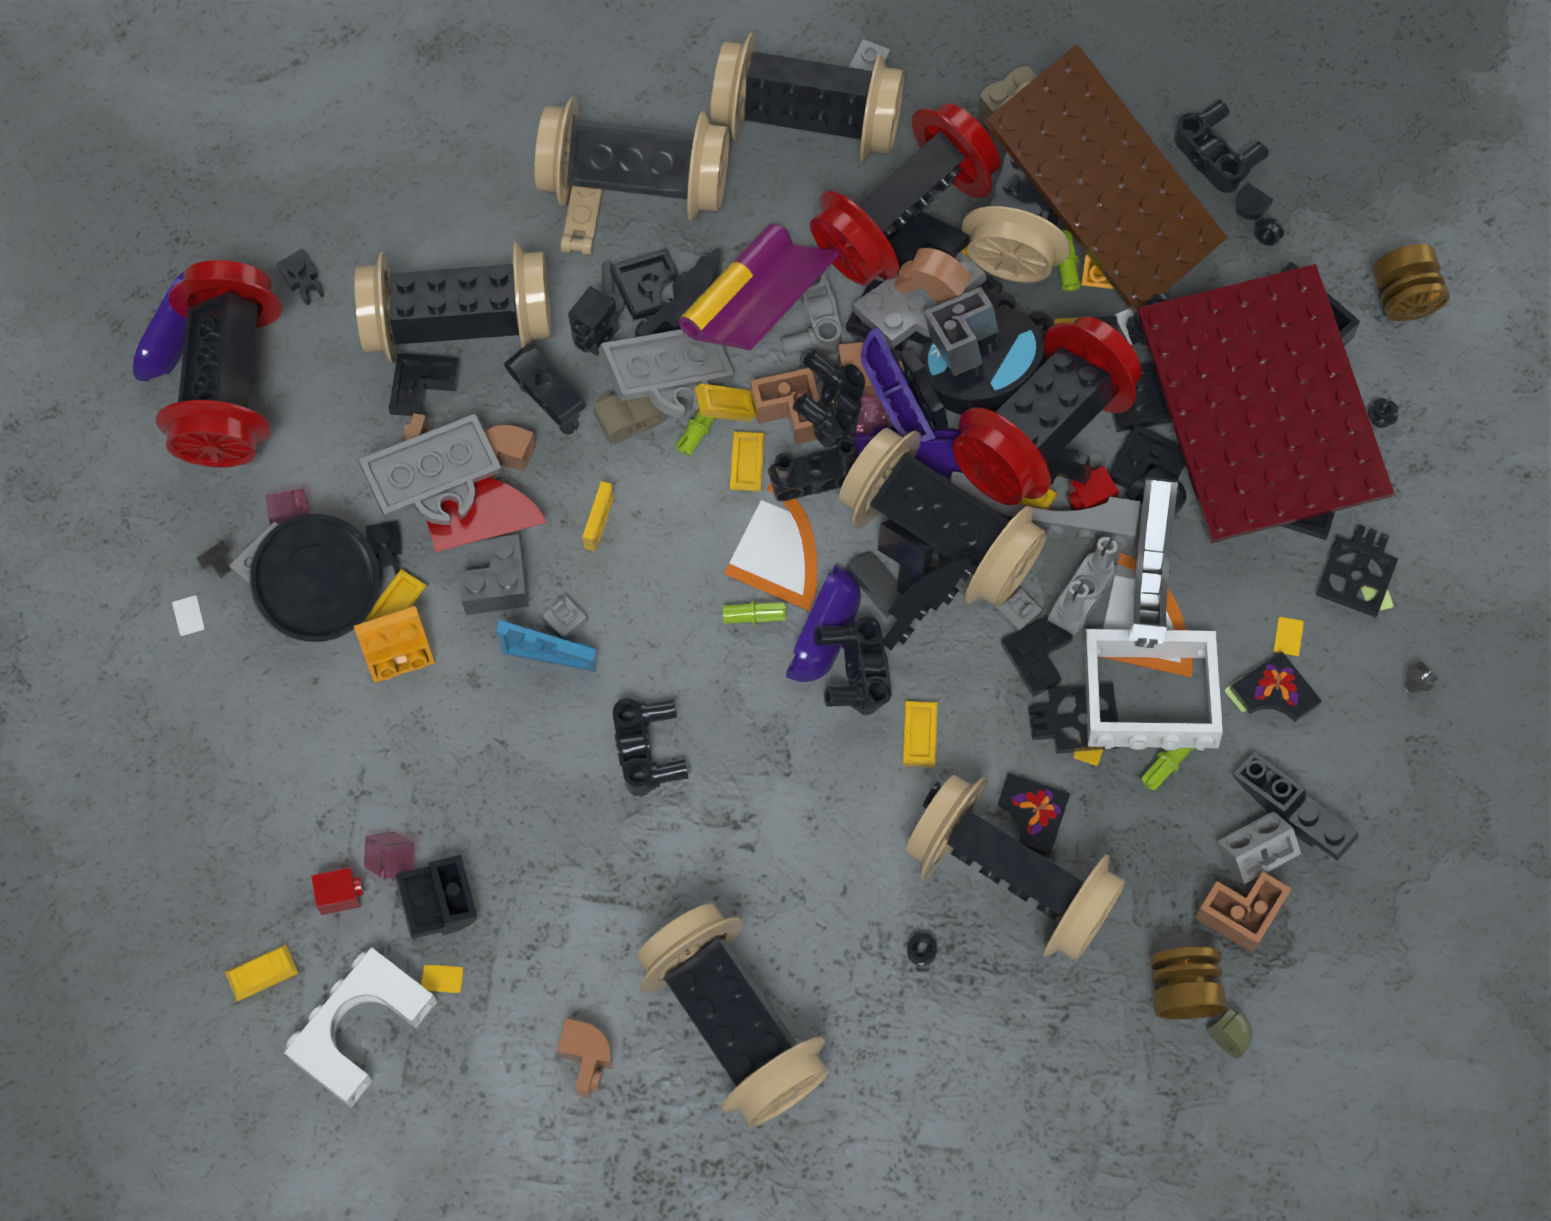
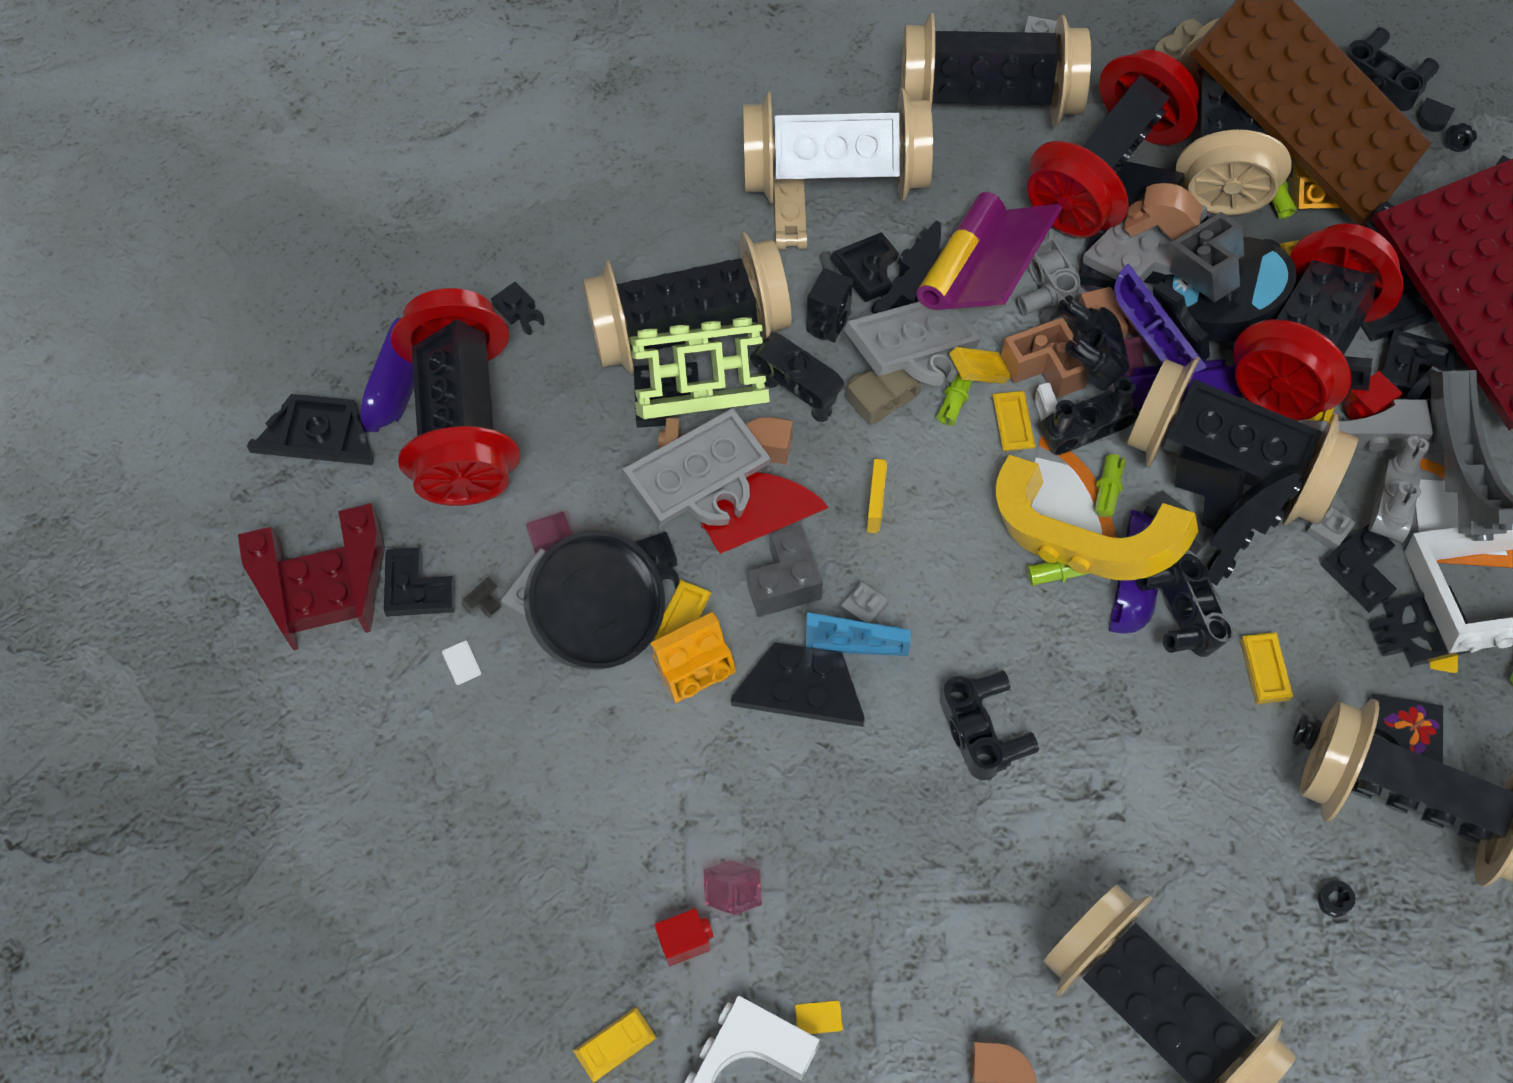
camera: 10 degrees left, 5 degrees down
(70, 524) = (321, 585): none -> dark red wedge
(90, 373) = (315, 430): none -> black wing
(149, 542) = (409, 593): none -> black plate
(436, 898) = (797, 927): black brick -> none
(452, 394) = (702, 394): none -> yellowish green fence
(490, 683) = (801, 684): none -> black wing
(779, 443) = (1045, 401): none -> white tile
(804, 614) = (1084, 550): none -> yellow arch
(820, 539) = (1109, 485): none -> lime axle

